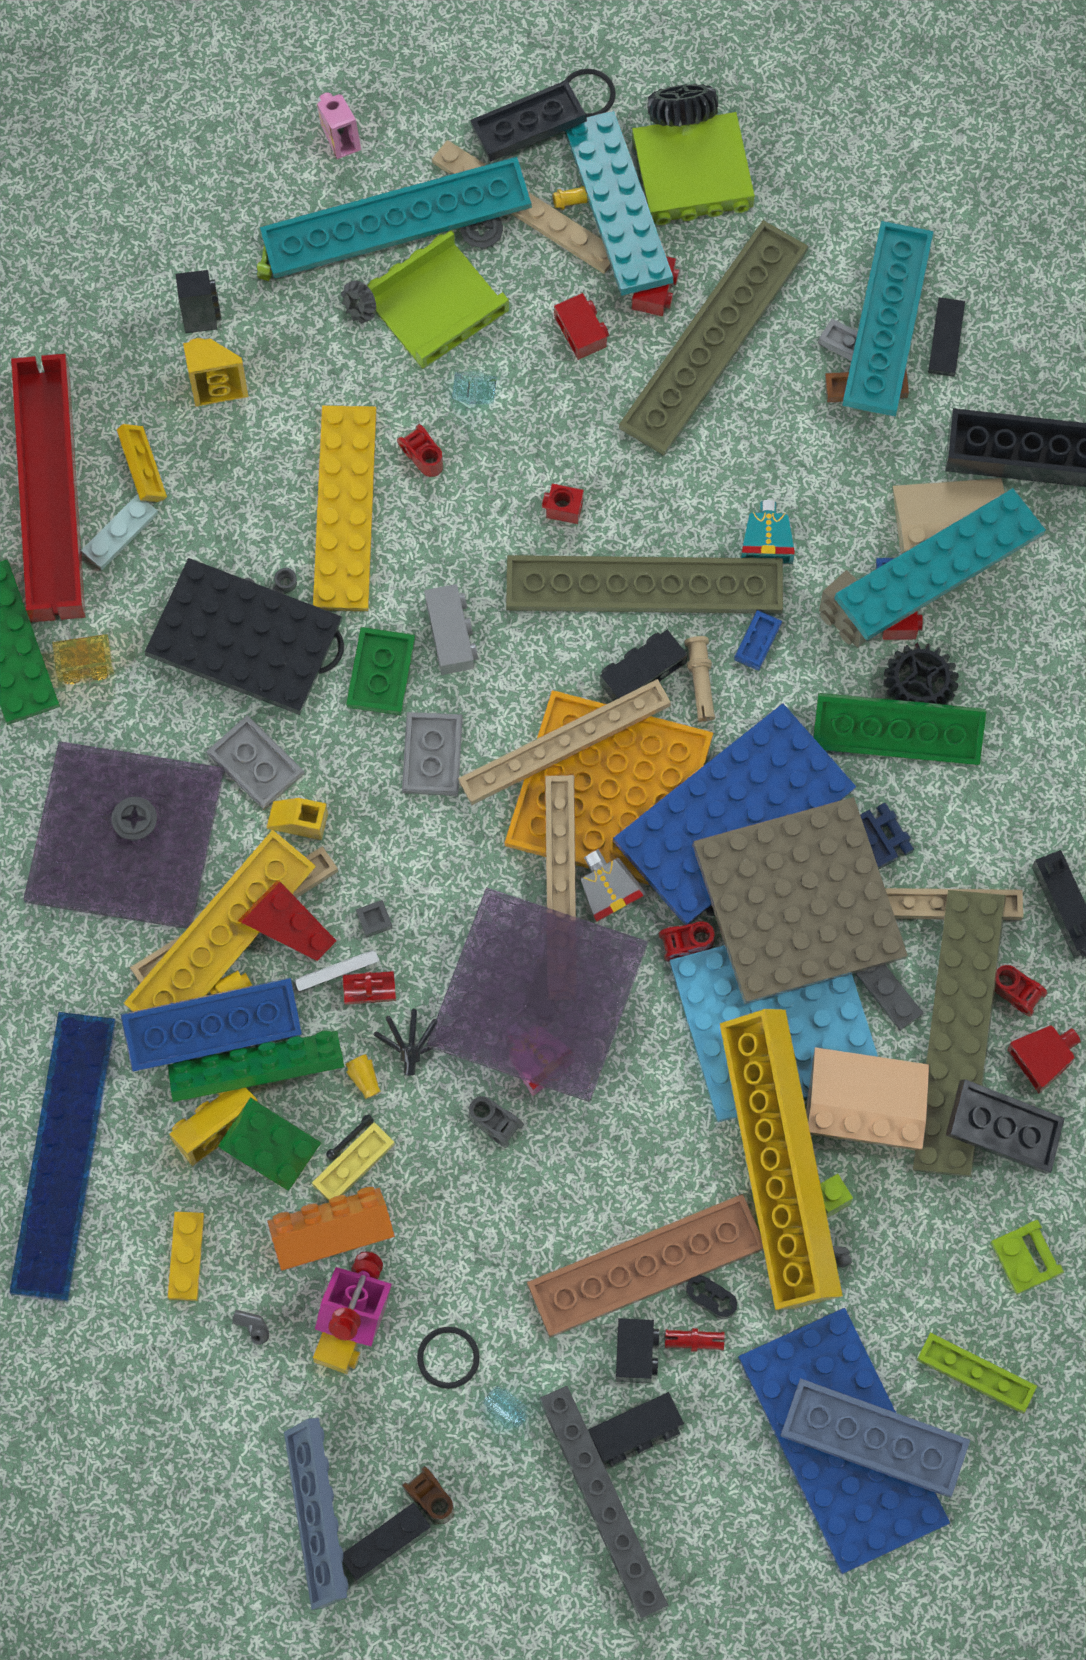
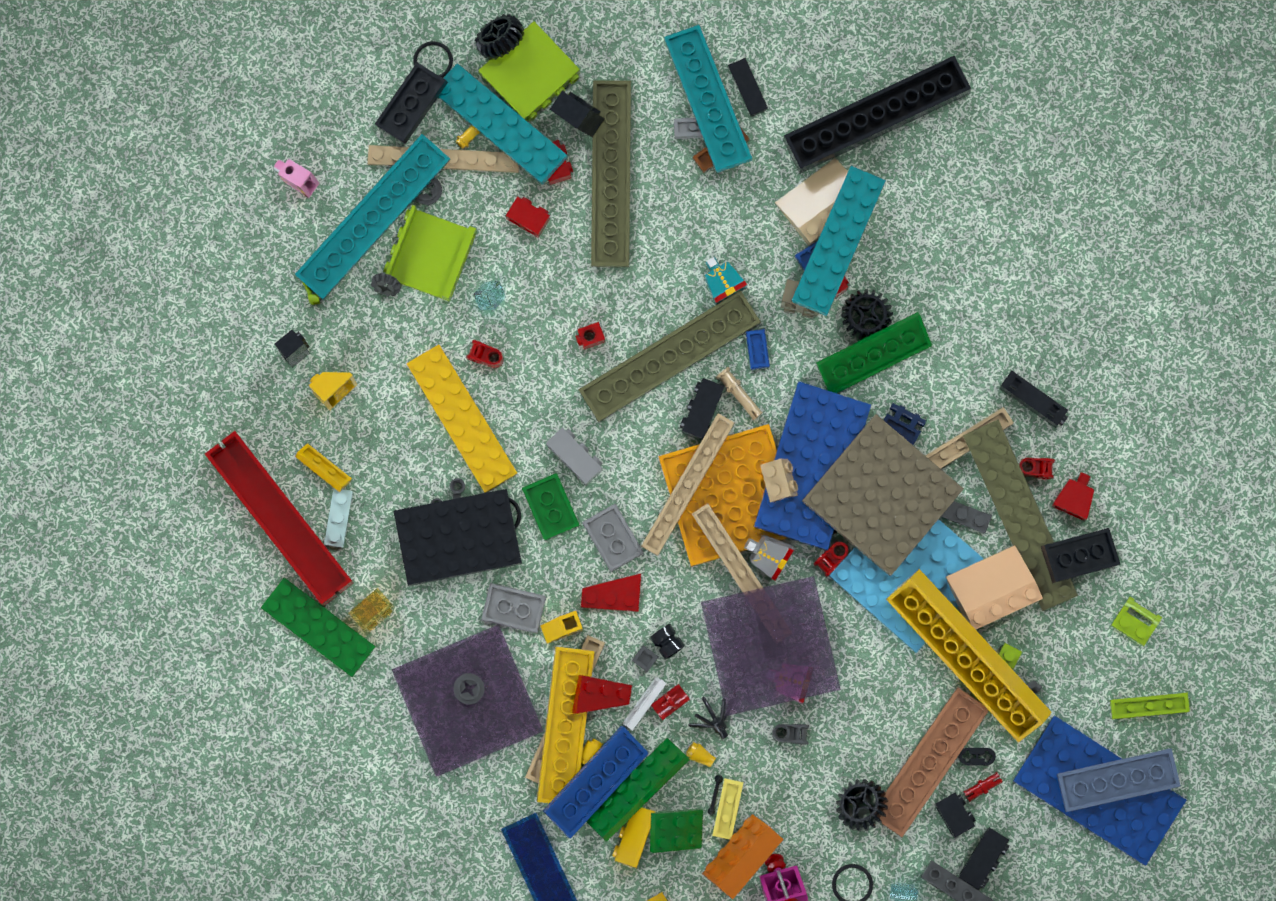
camera: 30 degrees left, 10 degrees up
(387, 821) = (617, 594): none -> red wing
(414, 909) = (667, 641): none -> black wheel
(516, 1275) = (866, 790): none -> black gear
(680, 799) = (779, 479): none -> tan bracket
(718, 239) = (577, 113): none -> black brick

